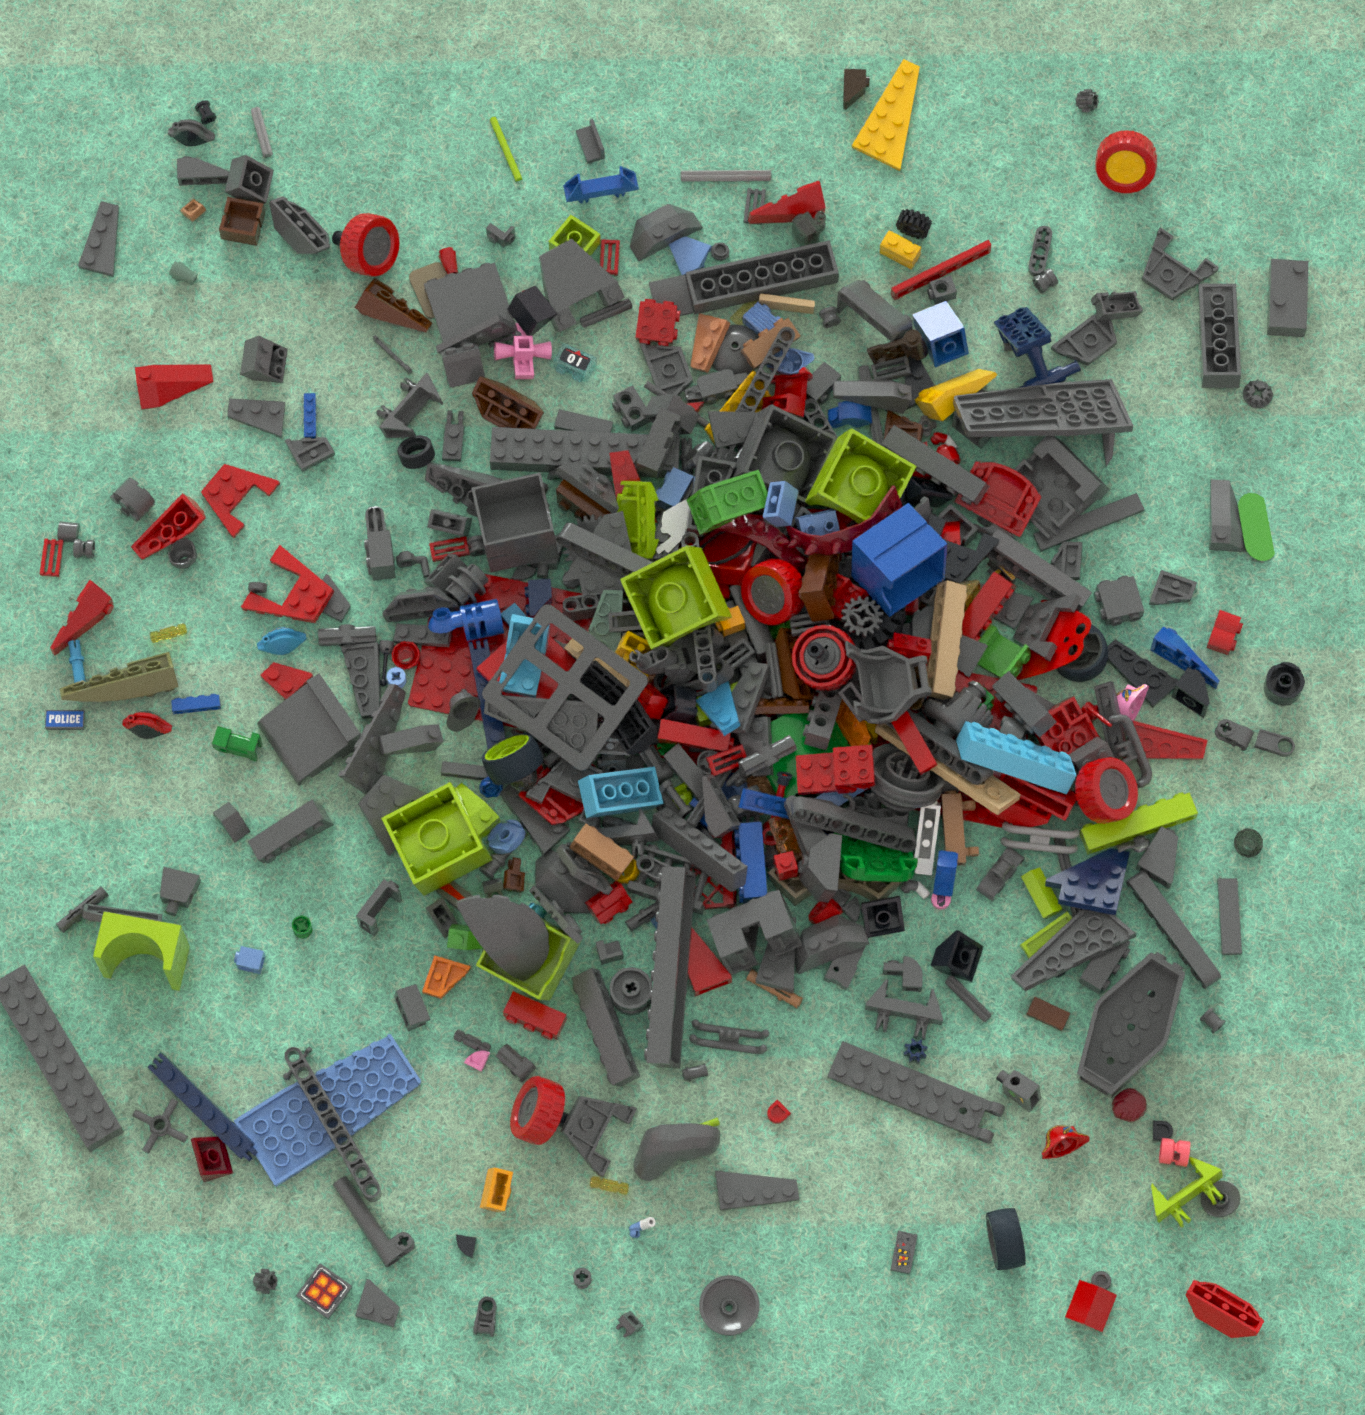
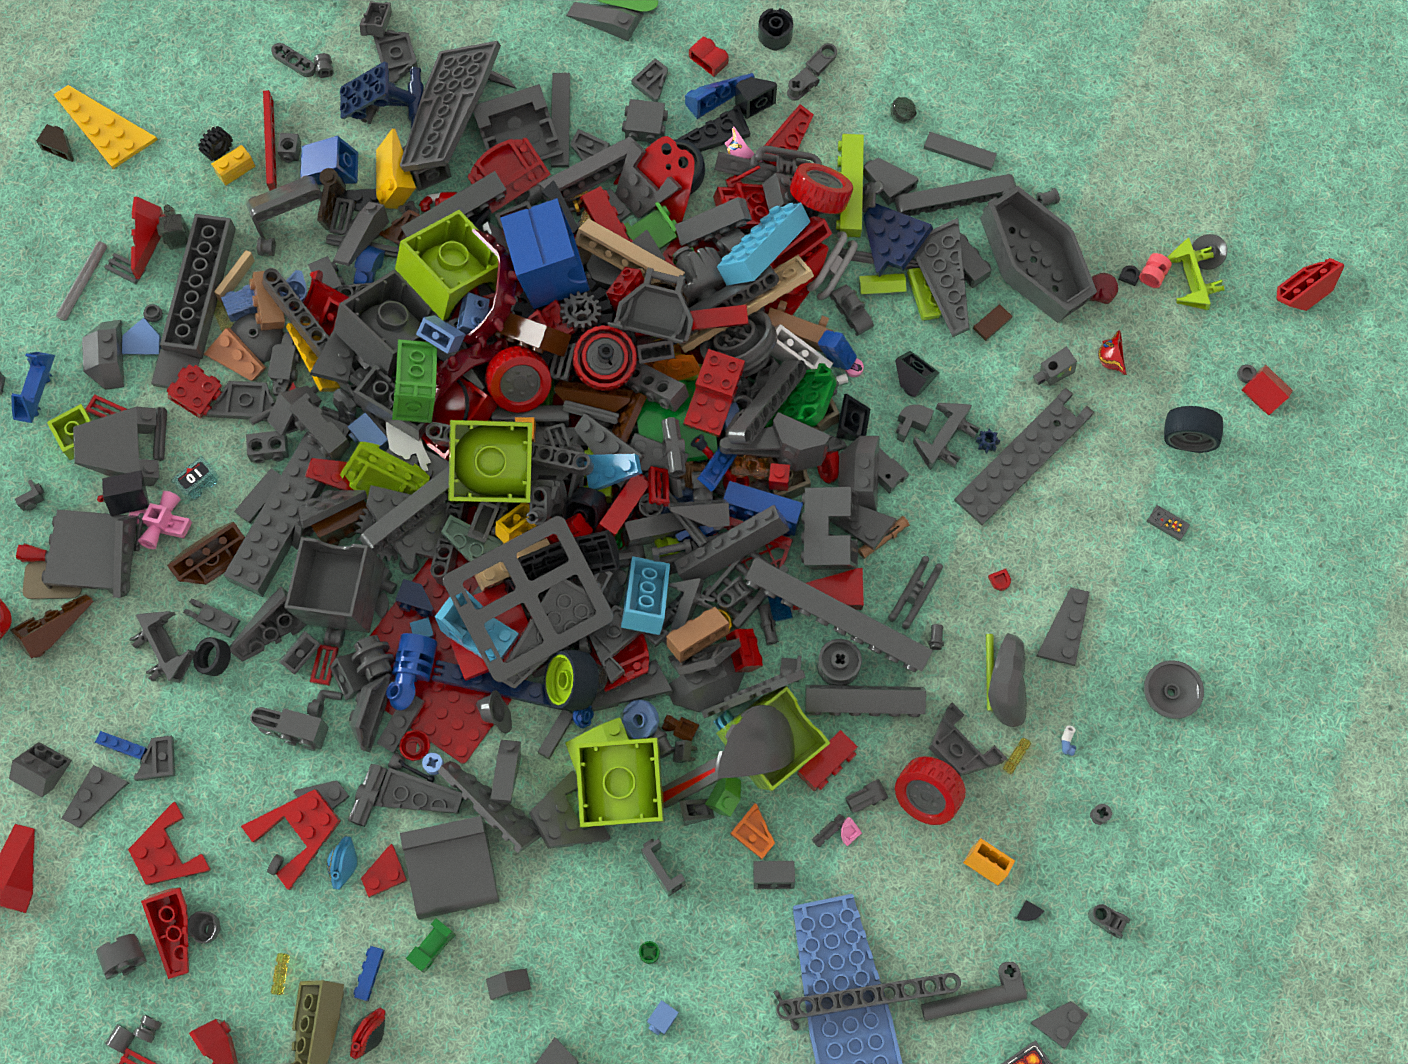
camera: 70 degrees left, 0 degrees up
(290, 831) = (546, 927): dark grey wedge -> none
(392, 355) = (118, 635): dark grey piece -> none
(462, 364) = (145, 579): dark grey bracket -> none
(630, 1323) = (1159, 786): dark grey tile -> none
(968, 998) = (954, 380): dark grey axle -> none

